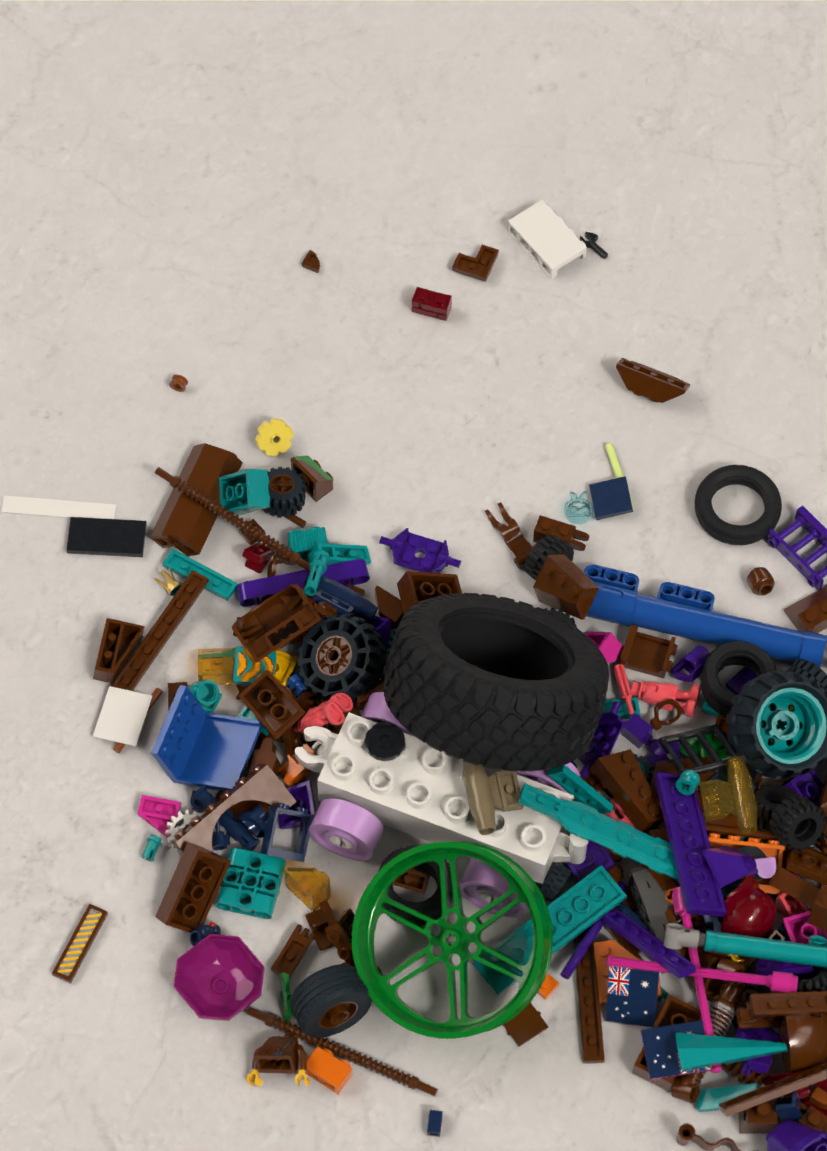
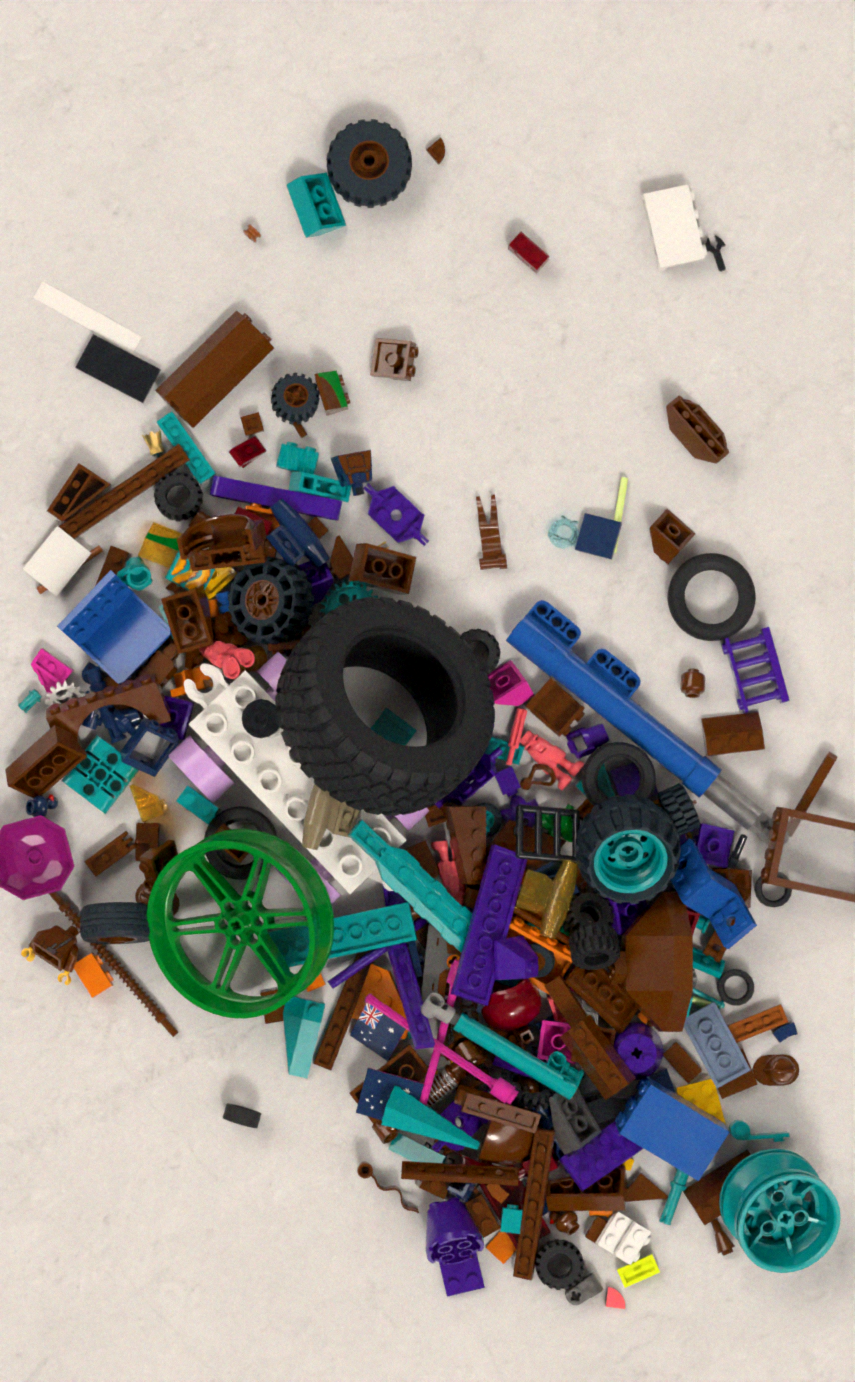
camera: 20 degrees right, 25 degrees up
(176, 482) = (199, 352): reddish brown hose -> none
(212, 601) = (166, 485): none -> black tyre
(224, 339) = (316, 204): none -> teal slope
(245, 491) = (256, 390): teal brick -> none
(257, 288) = (369, 143): none -> black wheel
(274, 437) = (314, 335): light yellow plant -> none
(281, 560) = (256, 465): reddish brown piece -> none
(285, 995) = (84, 892): green piece -> none
(317, 568) = (287, 502): teal pin -> none
(326, 609) = (273, 552): reddish brown tile -> none
(355, 430) = (394, 359): none -> plate
(357, 865) = (198, 804): none -> teal window
(363, 529) = (353, 470): none -> torso
(434, 1123) = (163, 1060): dark blue piece -> none
(476, 267) = (593, 229): reddish brown plate -> none
(539, 1136) = (241, 1115): none -> black tyre
(547, 546) = (506, 581): black tyre -> none
(555, 881) = (364, 894): black wheel -> none
(557, 1032) = (301, 1028): none -> teal wedge
(565, 586) = (506, 620): reddish brown wedge -> none
(566, 532) = (530, 554): reddish brown hinge -> none
(580, 789) = (422, 833): teal plate -> none
(674, 473) = (669, 536): none -> reddish brown slope
(688, 782) = (516, 867): teal wheel -> none
(766, 867) = (547, 972): tile -> none

